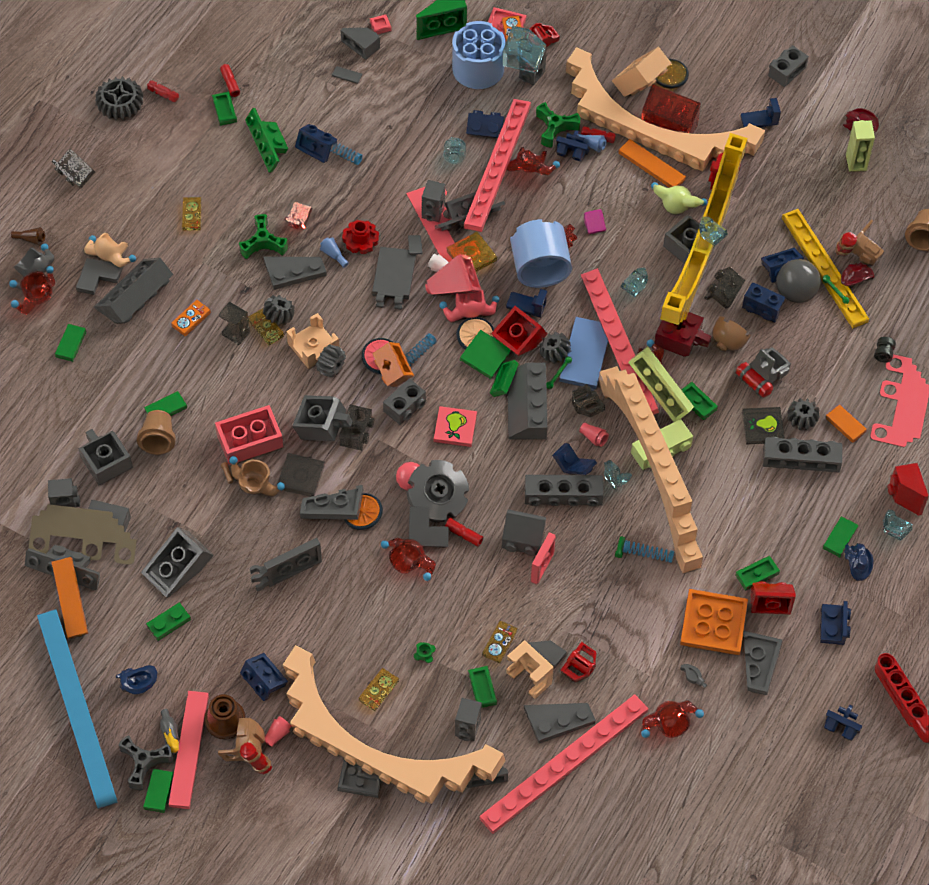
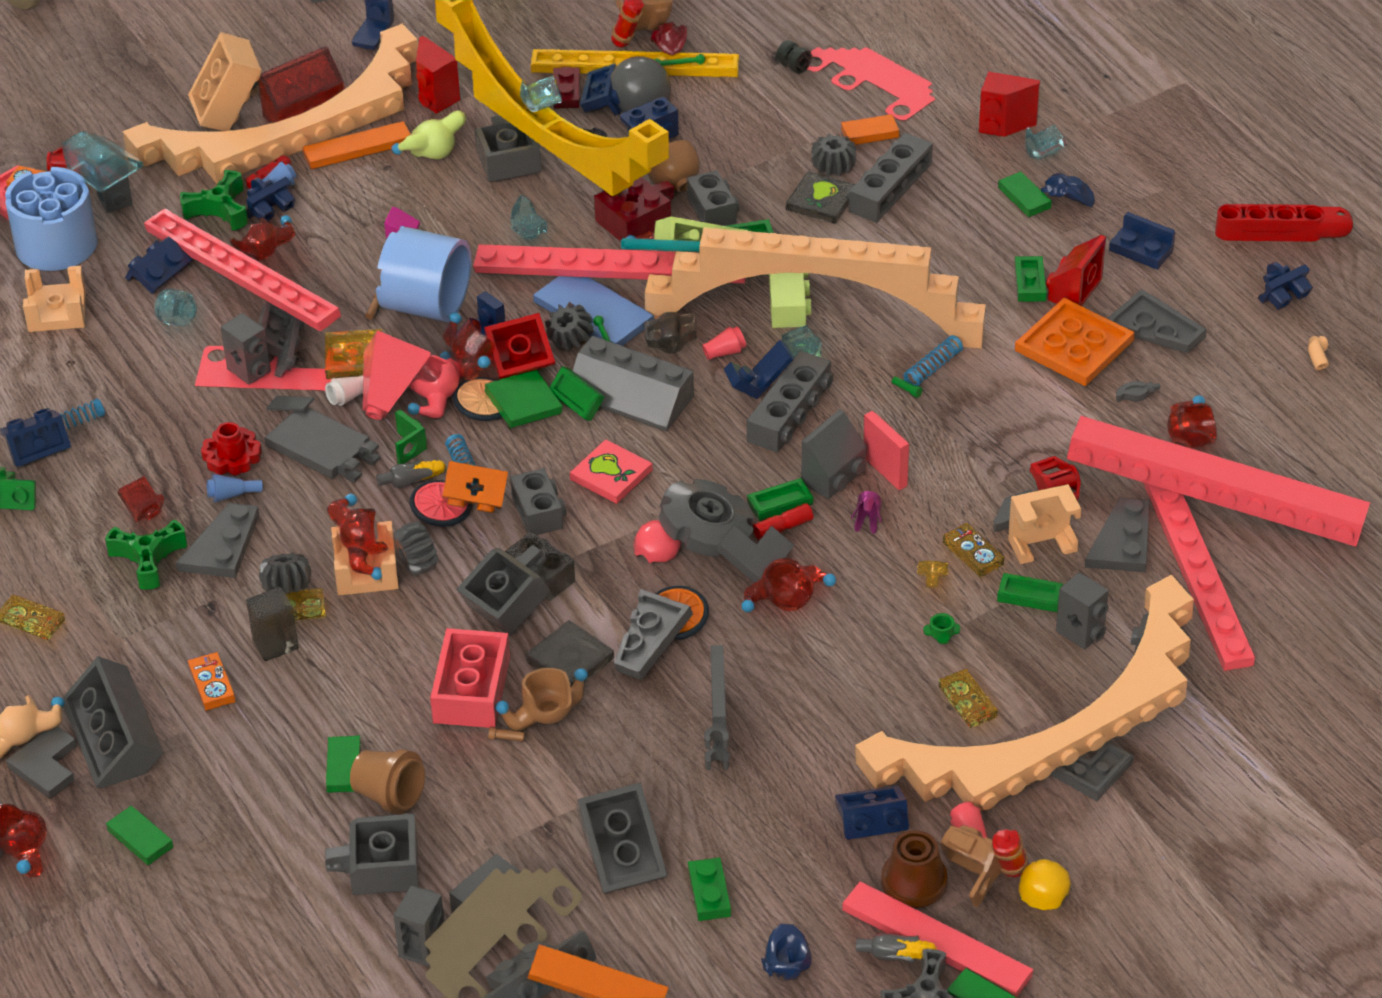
camera: 60 degrees left, 15 degrees down
(255, 787) = (1044, 884): none -> yellow hair
(317, 327) = (357, 534): none -> clear red piece
(393, 328) = (407, 474): none -> dark grey piece
(420, 319) = (413, 433): none -> green bracket
(426, 94) = (55, 305): none -> light nougat panel
(465, 626) = (932, 571): none -> clear yellow tile
(483, 522) = (779, 499): none -> green tile
(501, 305) = (468, 345): none -> clear red piece
(501, 569) = (868, 504): none -> flat silver piece
(624, 752) = (1218, 480): none -> coral brick
(628, 366) = (660, 245): none -> teal piece
(714, 366) = (712, 199): none -> dark grey brick
(763, 371) = (749, 160): dark grey piece -> none
(776, 242) = (569, 86): none -> dark red plate
(793, 763) = (1316, 350): none -> light nougat arm

